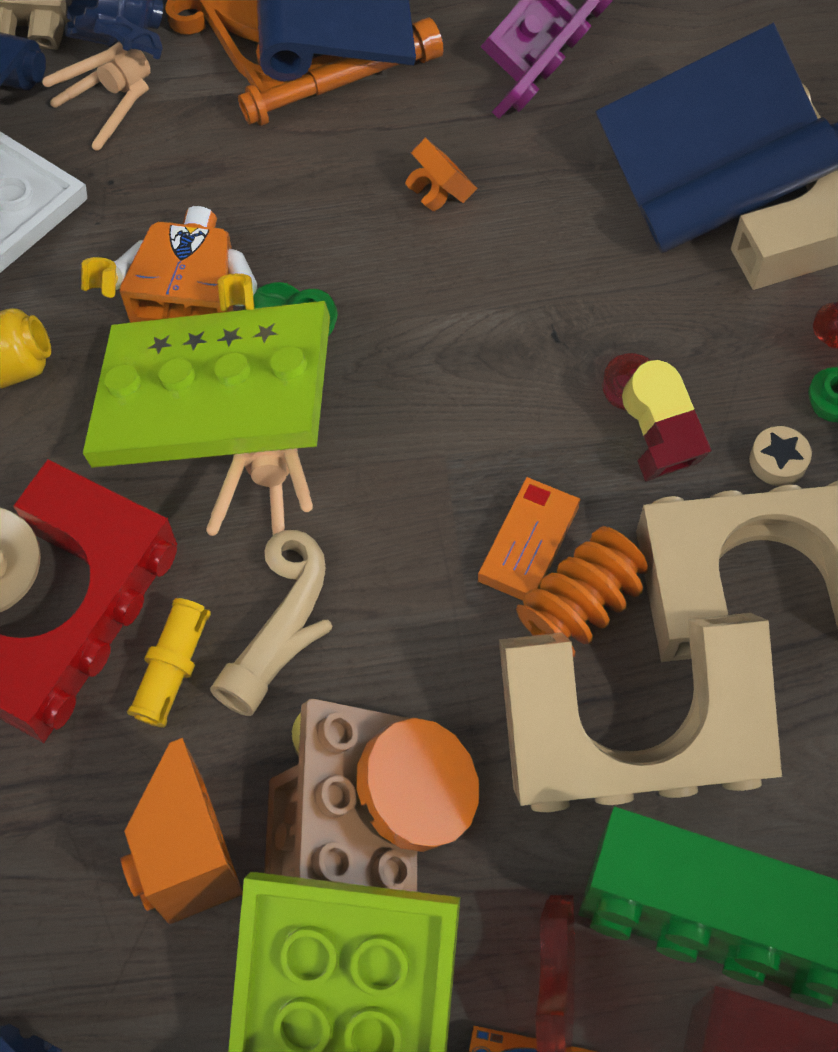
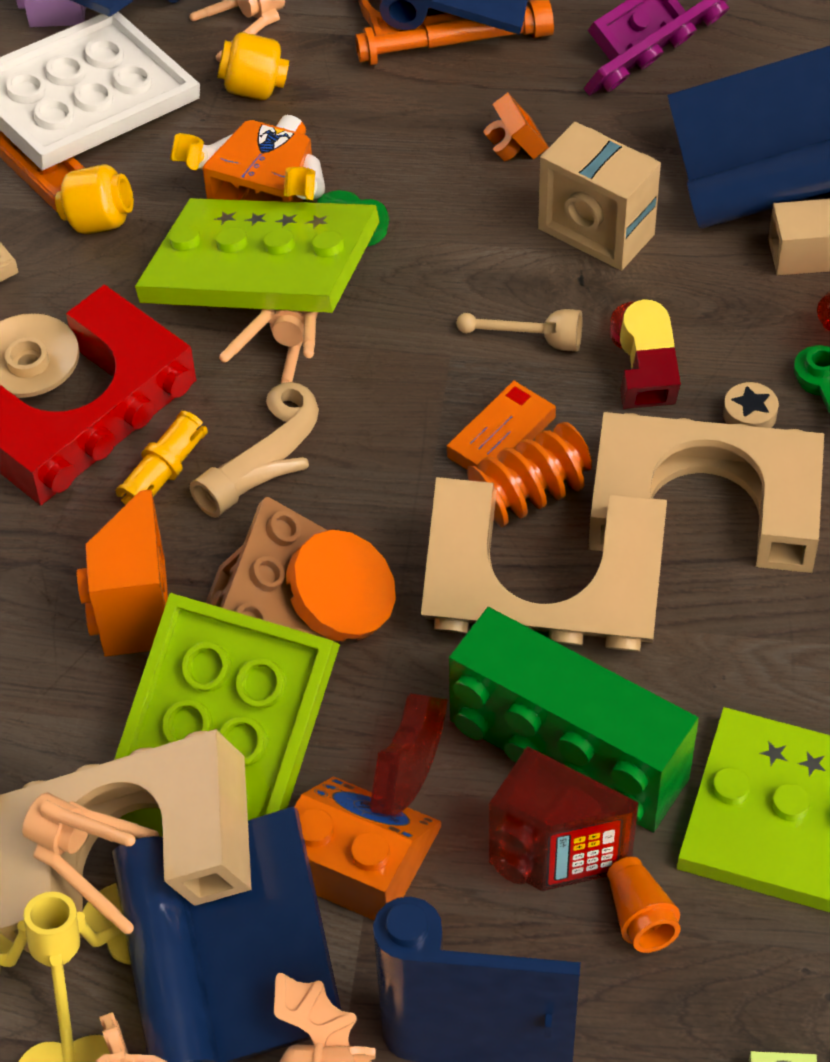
camera: 15 degrees right, 10 degrees down
(137, 152) = (252, 66): none -> yellow head
(556, 405) = (560, 329): none -> tan hinge
(557, 240) = (598, 195): none -> tan container

